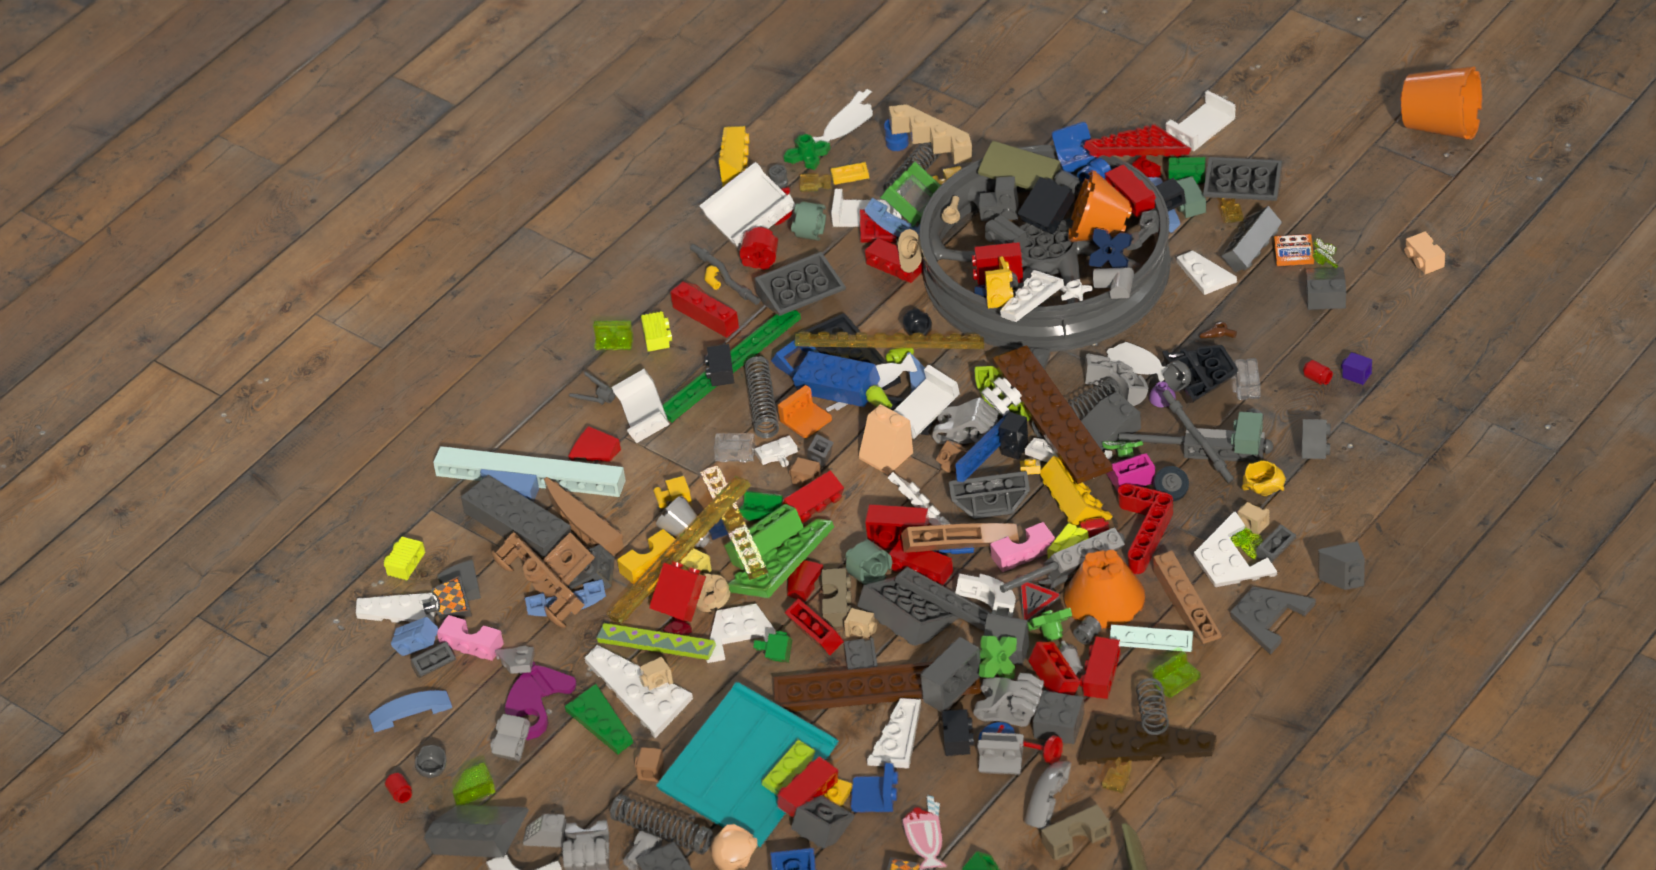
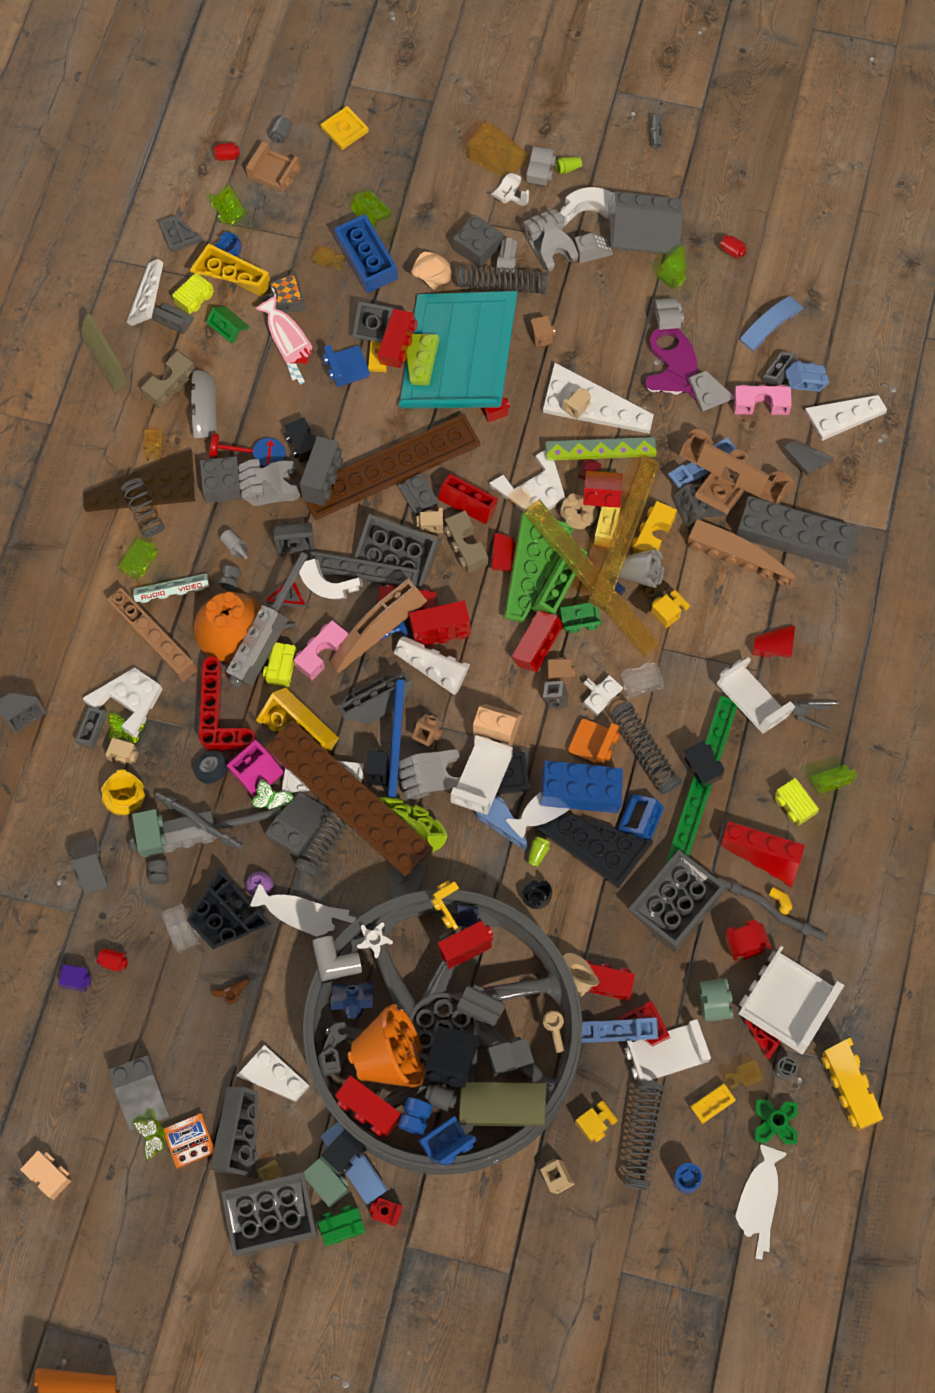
camera: 155 degrees right, 25 degrees up
(404, 558) = (872, 461): neon yellow brick -> none
(430, 761) = (721, 274): dark grey hair -> none
(449, 600) = (800, 424): torso -> none
(522, 483) = (823, 569): medium blue slope -> none
(568, 474) = (818, 591): light aqua brick -> none
(599, 718) = (616, 368): green wing -> none
(777, 647) = (490, 468): green brick -> none
(868, 562) = (450, 579): sand green brick -> none
(876, 396) = (527, 773): lime cone -> none
(897, 340) = (556, 852): clear yellow plate -> none
(898, 736) = (349, 420): white wing -> none
(911, 193) = (619, 1070): bright green window -> none
(926, 129) = (648, 1167): tan brick -> none
(995, 657) = (292, 506): bright green plant -> none
(1000, 753) = (256, 430): light grey bracket -> none
(1011, 395) = (404, 801): white brick -> none
(1032, 294) = (412, 918): white wing -> none
(1032, 466) = (349, 741): yellow plate -> none
(1050, 623) = (263, 569): bright green plant -> none
(1053, 669) = (240, 519): red brick -> none
(1095, 526) = (263, 692): red brick -> none
(1101, 368) = (304, 888): light grey brick -> none
(1101, 667) = (204, 543): red brick -> none
(1140, 142) = (392, 1236): red wing -> none
(1177, 375) = (241, 889): dark grey hair -> none
(1203, 122) = (354, 1321): white panel -> none
(1262, 608) = (86, 655): dark grey wing -> none

